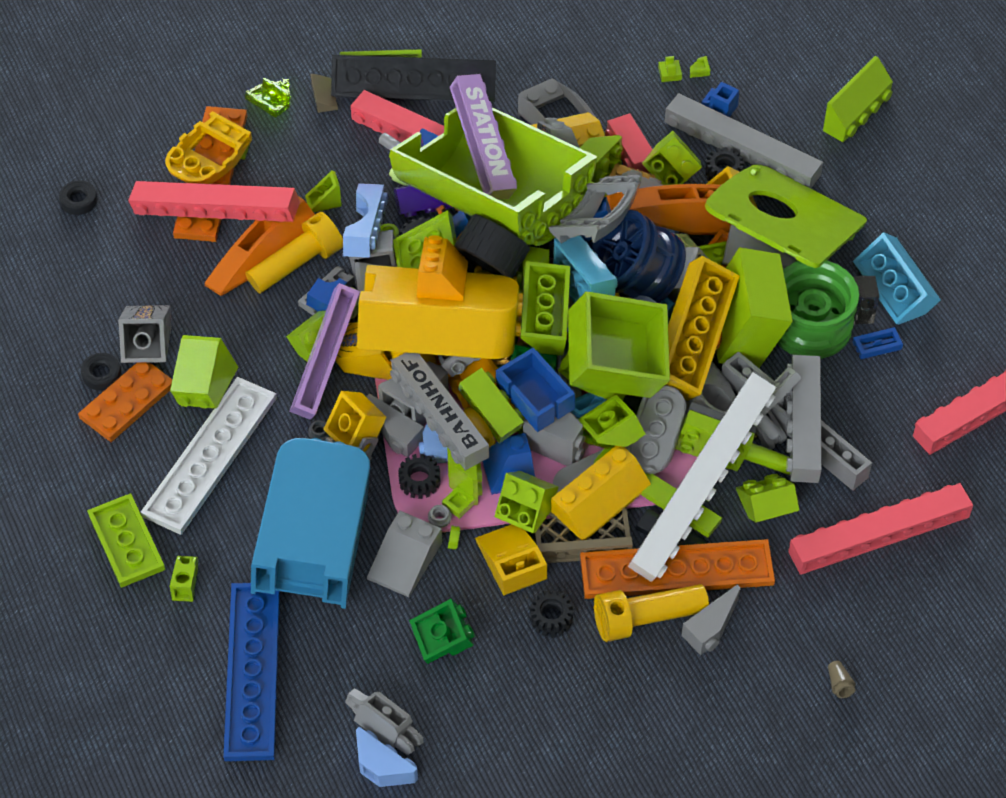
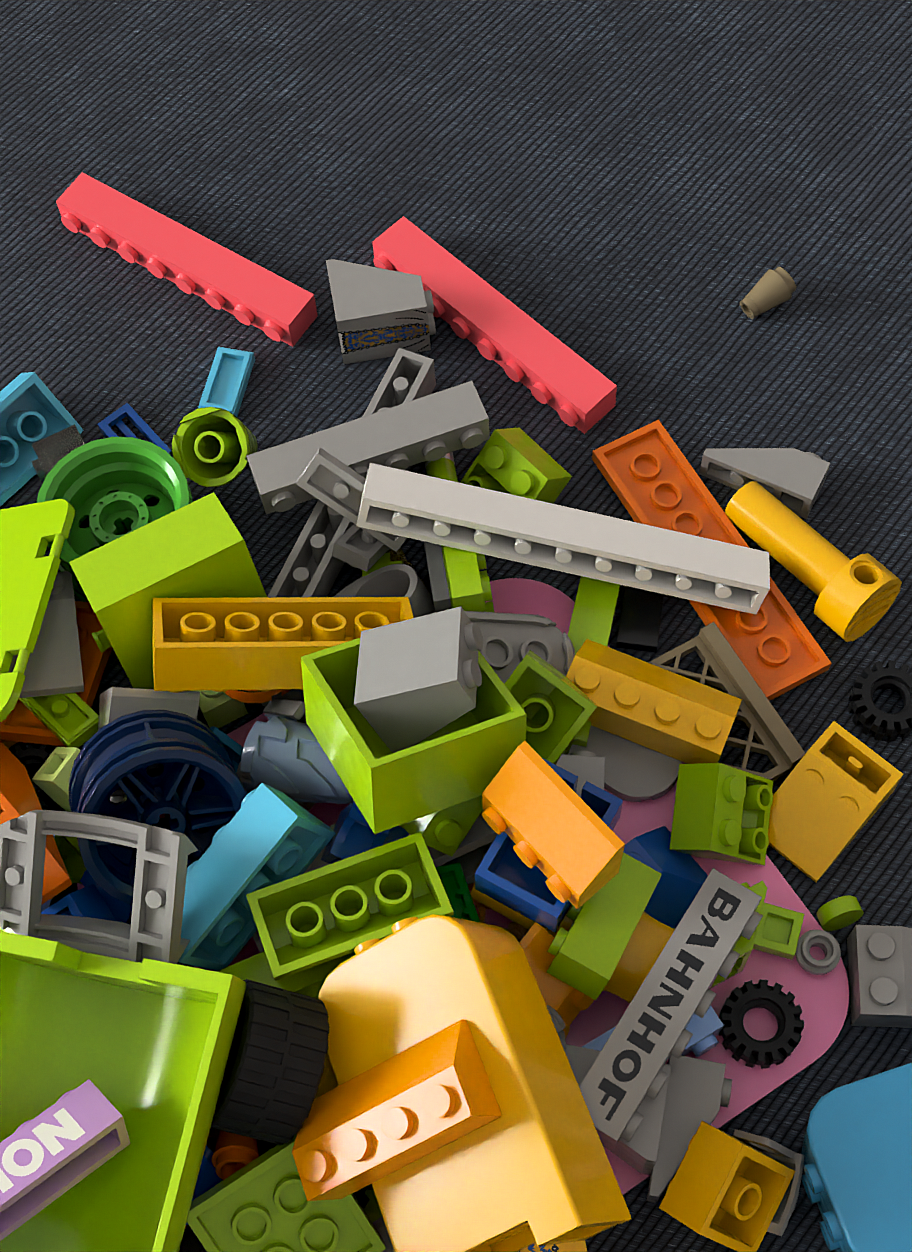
camera: 110 degrees left, 10 degrees up
(534, 373) = (551, 827): none -> light orange slope
(634, 340) = (418, 675): none -> light grey slope
(840, 359) = (212, 446): none -> lime cone
(898, 395) = (228, 379): none -> medium azure tile
(909, 465) = (379, 311): none -> light grey slope

